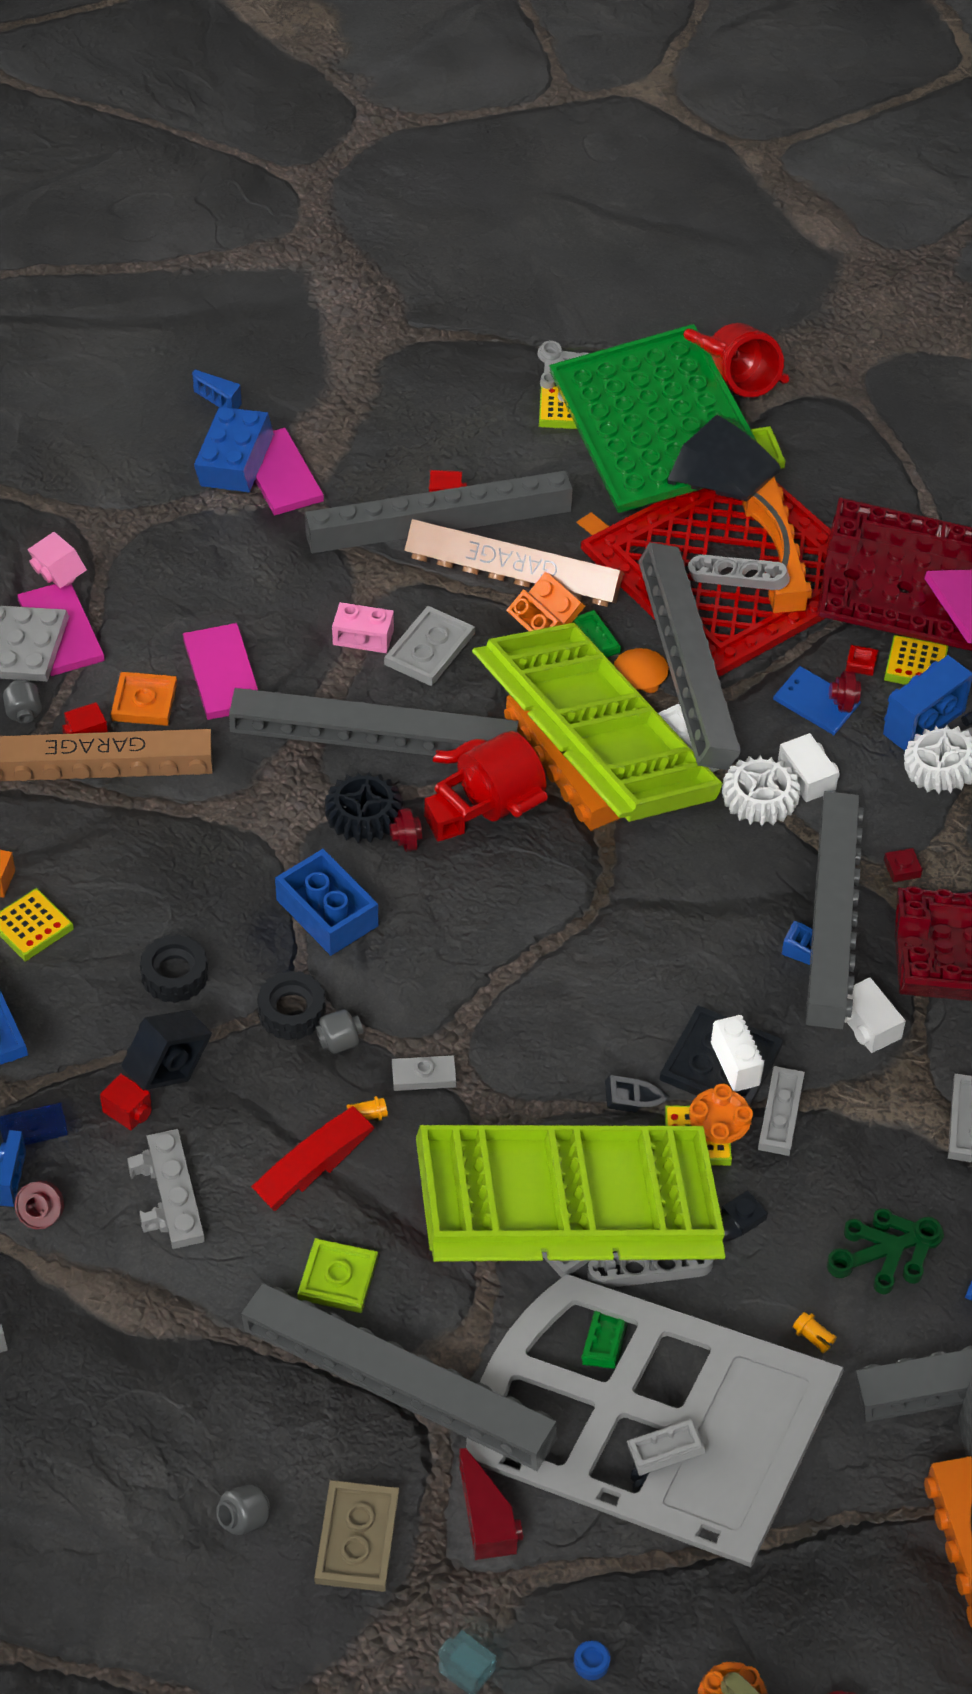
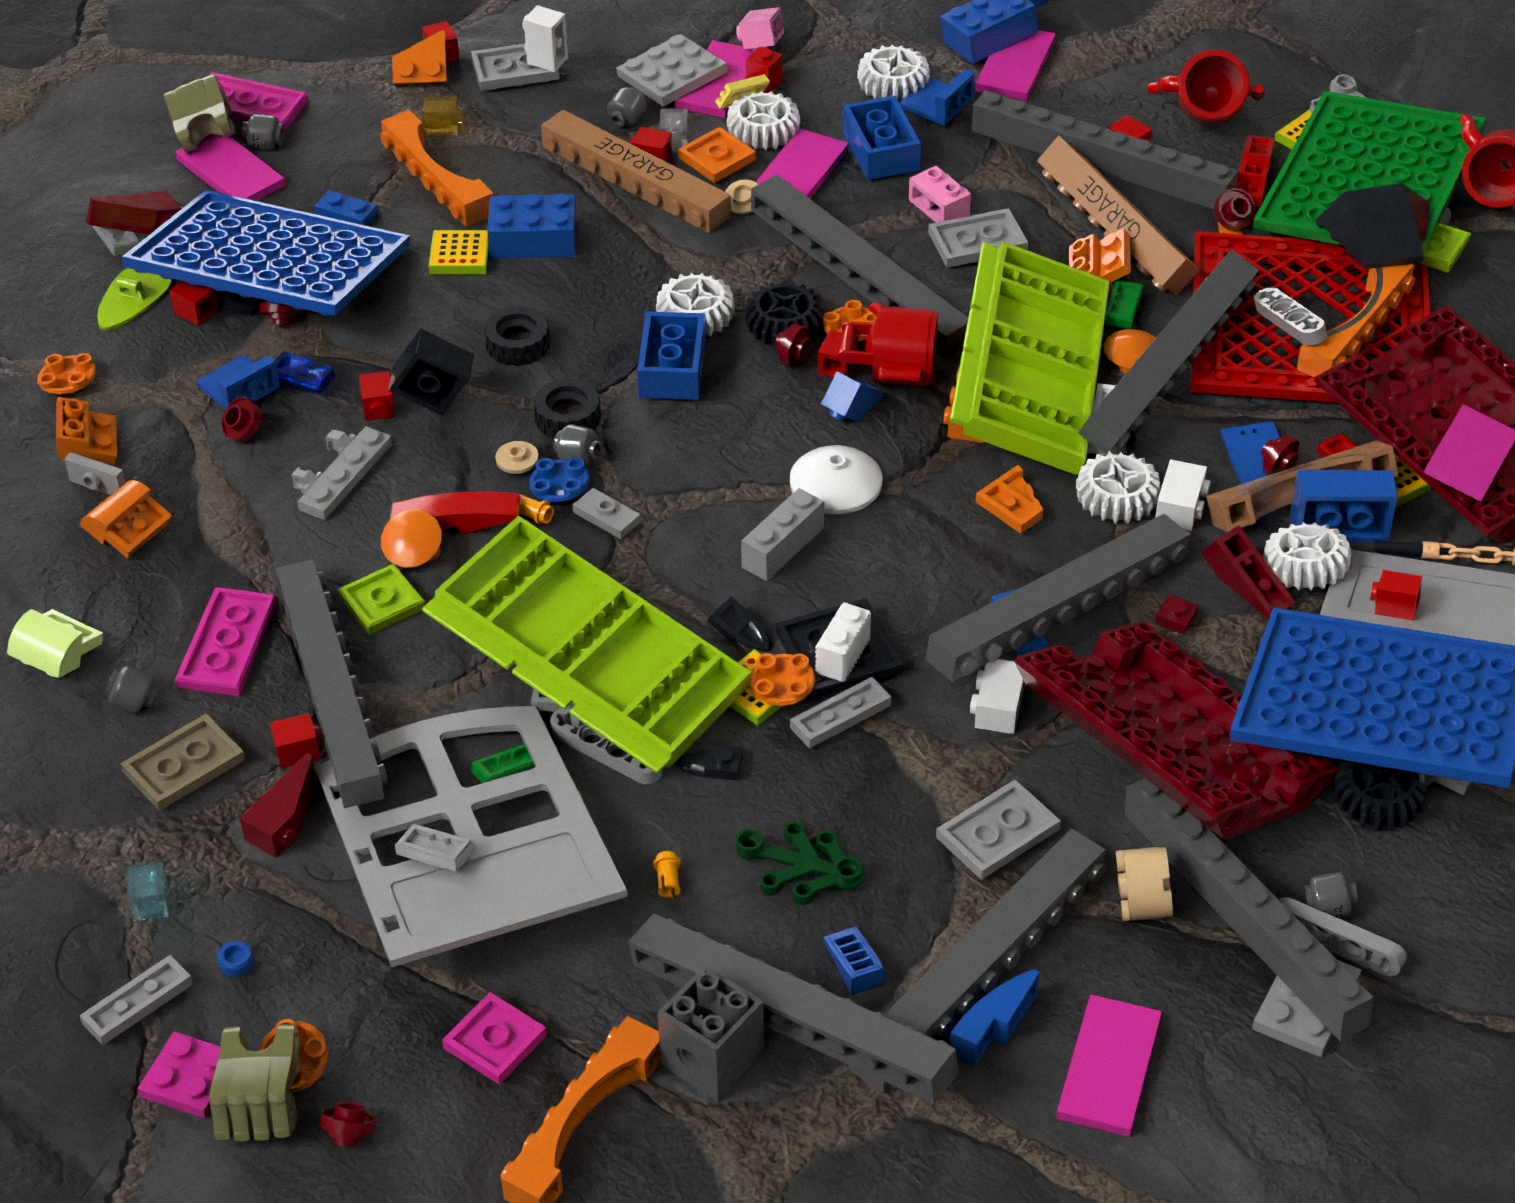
camera: 45 degrees right, 5 degrees down
(48, 1364) = (127, 518): none -> orange brick
(73, 860) = (532, 226): none -> blue brick
(82, 692) = (676, 122): none -> clear brick
(97, 597) = (765, 62): none -> red brick
(106, 628) = (742, 87): none -> light yellow tile
(126, 1520) = (52, 641): none -> yellowish green brick
(147, 644) = (763, 120): none -> white gear
(202, 538) = (892, 72): none -> white gear
(210, 718) = (741, 196): none -> tan piece
(258, 1406) = (226, 641): none -> dark pink tile
(262, 541) = (940, 100): none -> blue bracket
(265, 602) = (881, 137): none -> blue brick
(287, 838) = (699, 295): none -> white gear
(300, 1075) = (516, 457): none -> tan piece
(309, 1206) = (411, 539): none -> orange dish
(357, 1071) = (559, 479): none -> blue dish
(418, 779) = (850, 312): none -> orange dish
(425, 1446) = (295, 738): none -> red brick
(486, 402) = (1207, 70): none -> red piece
(497, 846) = (850, 397): none -> slope
(555, 456) = (1255, 167): none -> red slope
(555, 933) = (838, 476): none -> white dish
(581, 996) = (782, 534): none -> light grey brick
(588, 504) = (1235, 209): none -> dark red plate
(702, 852) = (1011, 500): none -> orange wing
(851, 1559) = (494, 1038): none -> dark pink plate
(858, 749) = (1256, 498): none -> medium nougat arch
(916, 799) = (1246, 572): none -> dark red slope

